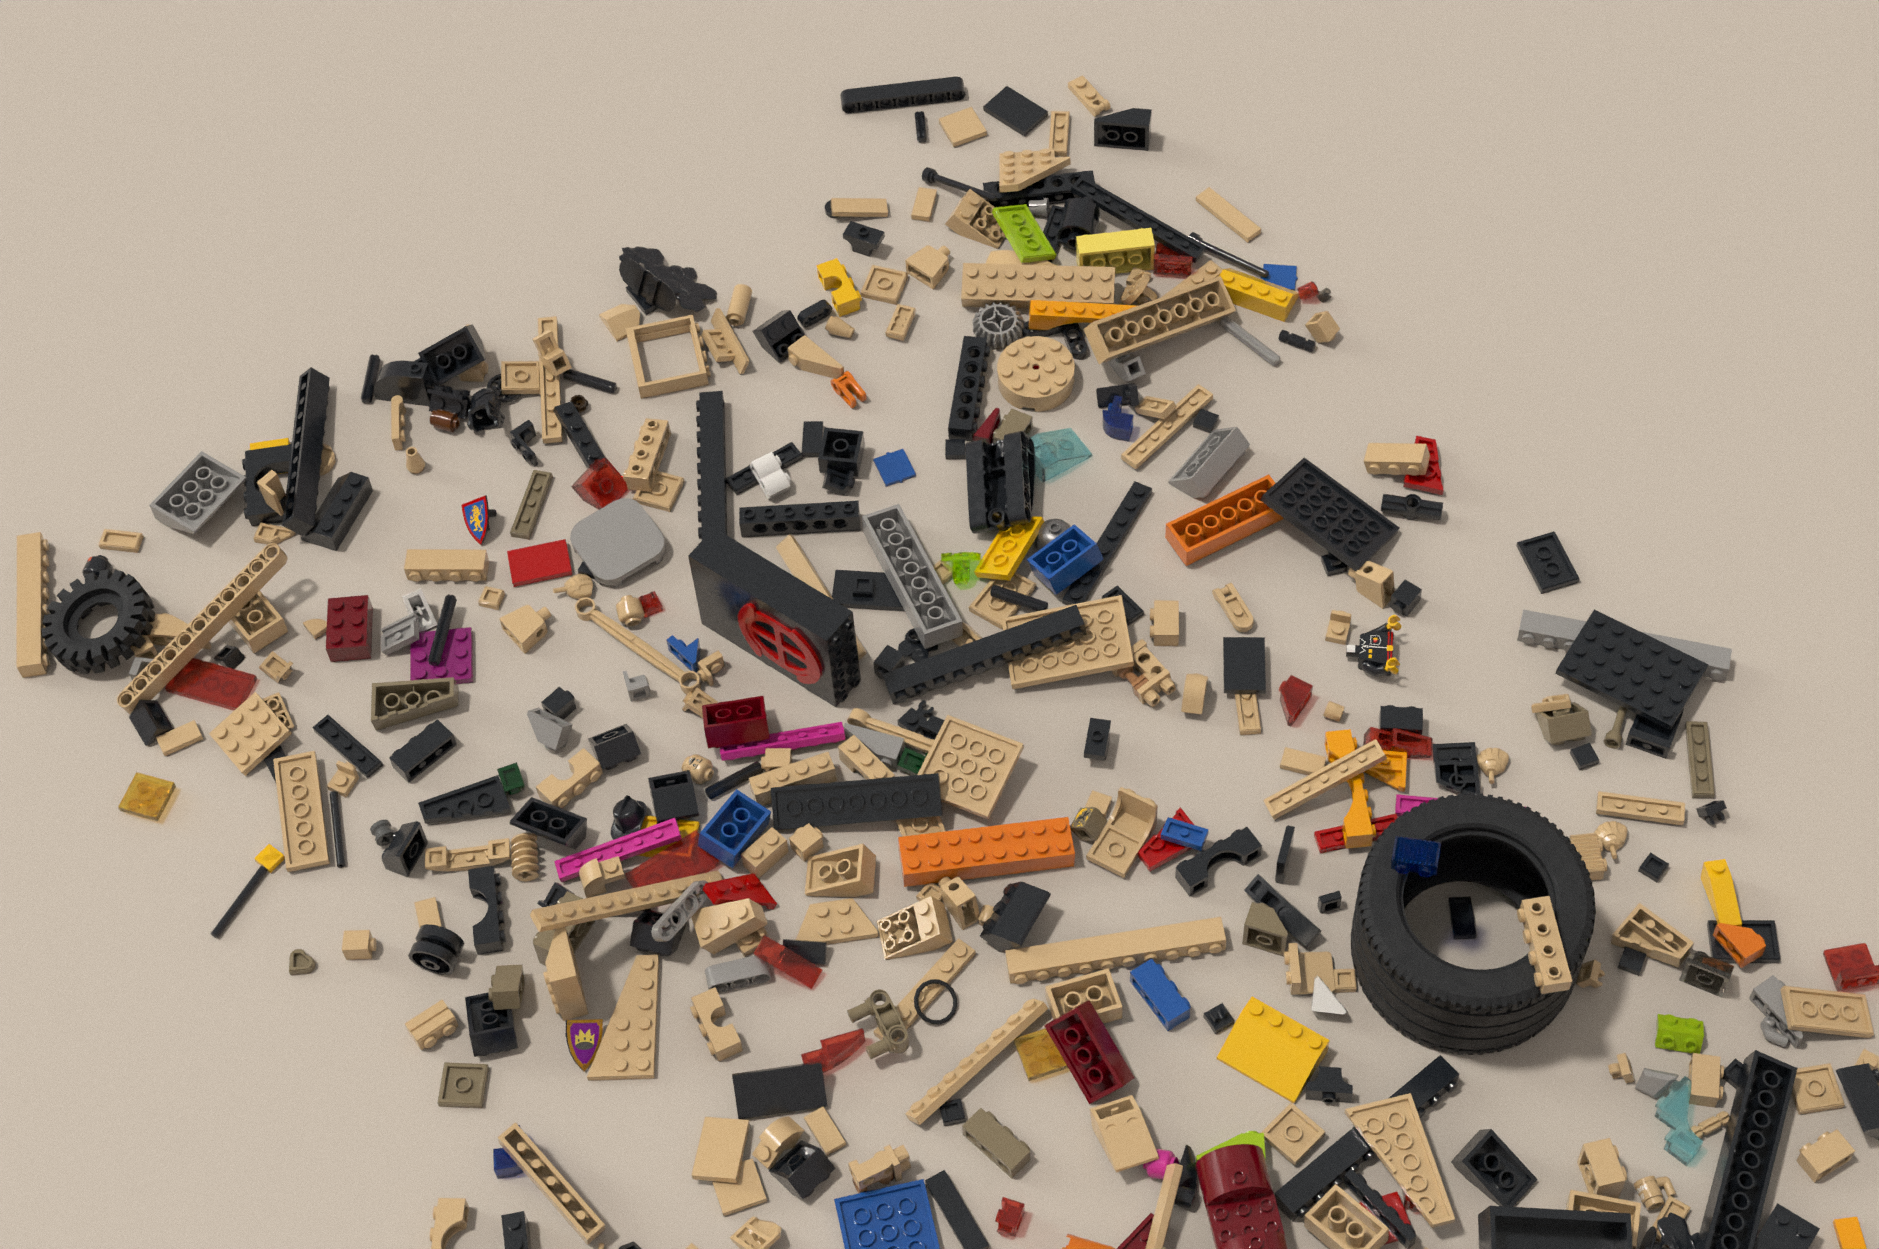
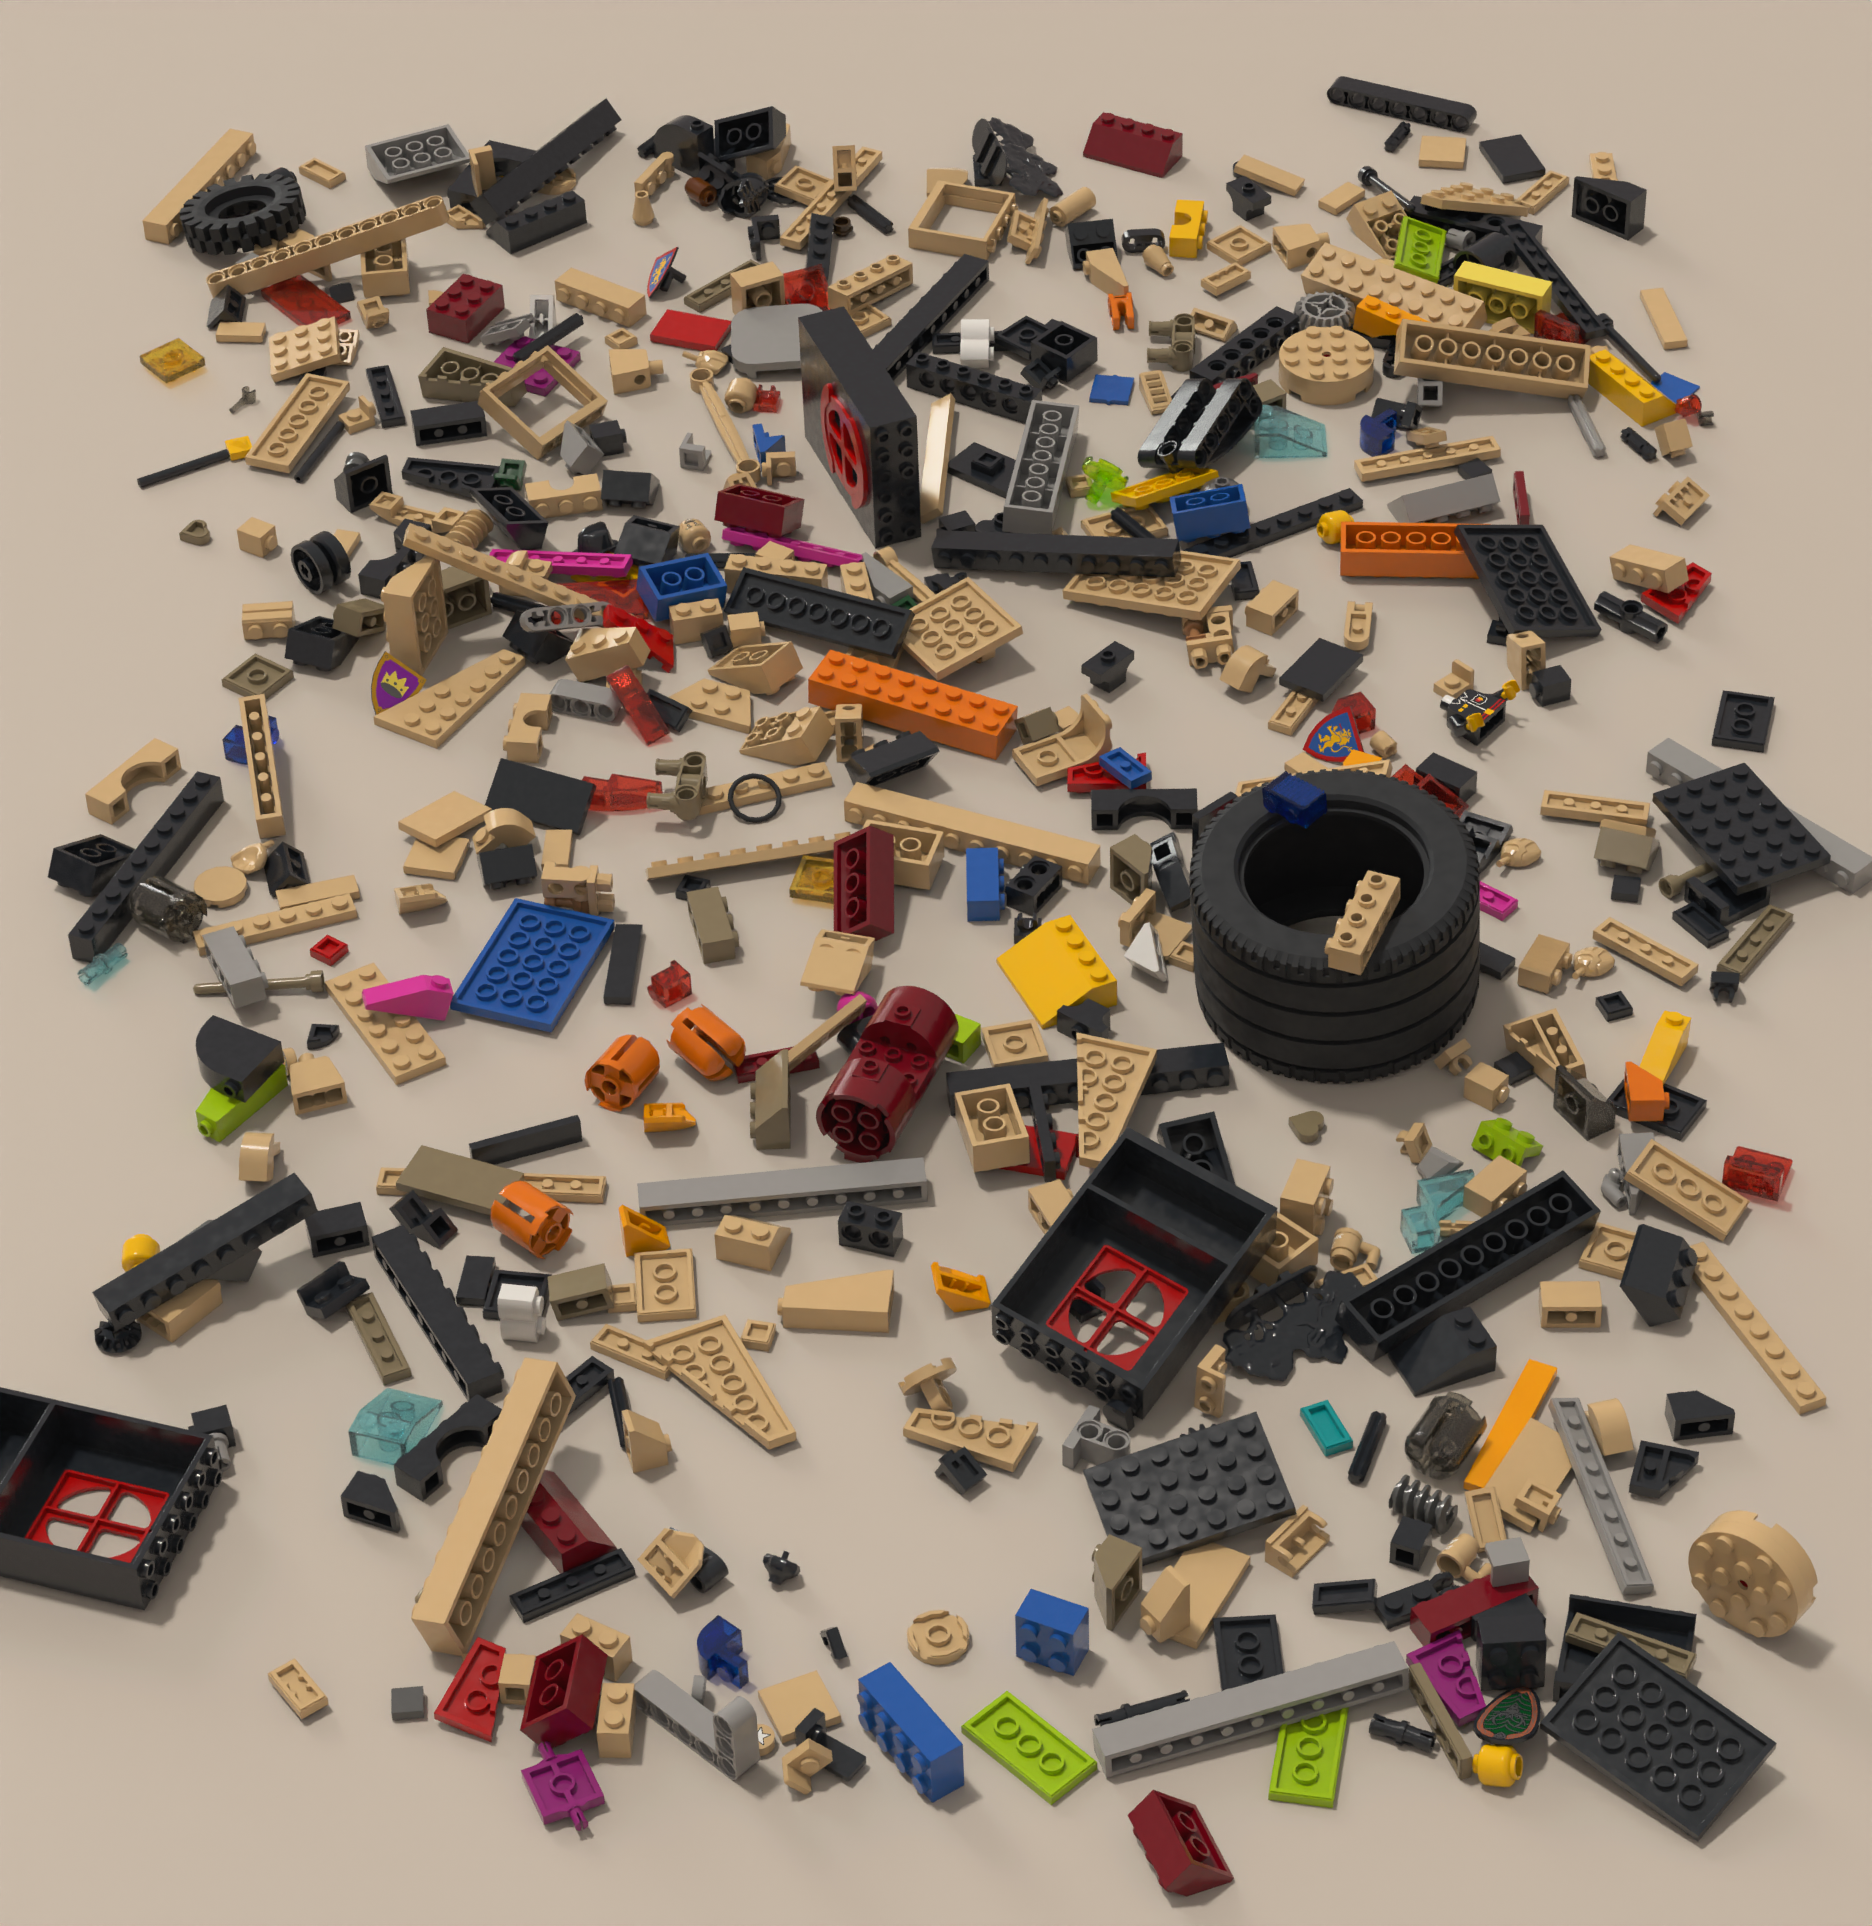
camera: 30 degrees right, 15 degrees down
(236, 804) = (247, 398): none -> clear smoke hand
(497, 667) = (546, 358): none -> tan window
(572, 504) = (757, 287): none -> tan brick
(739, 224) = (1133, 145): none -> dark red slope
(793, 863) = (716, 641): none -> black tile
(801, 450) = (1019, 336): none -> black tile
(916, 399) = (1182, 346): none -> dark tan piece
(920, 371) = (1213, 325): none -> tan slope
(924, 447) = (1154, 390): none -> tan slope
(1154, 524) = (1330, 526): none -> yellow head
(1198, 976) = (1034, 885): none -> black brick
(1262, 437) = (1520, 498): none -> dark red tile
(1302, 725) = (1334, 737): none -> shield
(1365, 381) = (1682, 500): none -> tan bracket
(1514, 695) = (1594, 808): none -> tan plate
(1538, 1092) = (1307, 1125): none -> dark tan tile
(1631, 990) = (1486, 1086): none -> tan brick
(1654, 762) = (1700, 925): none -> black tile

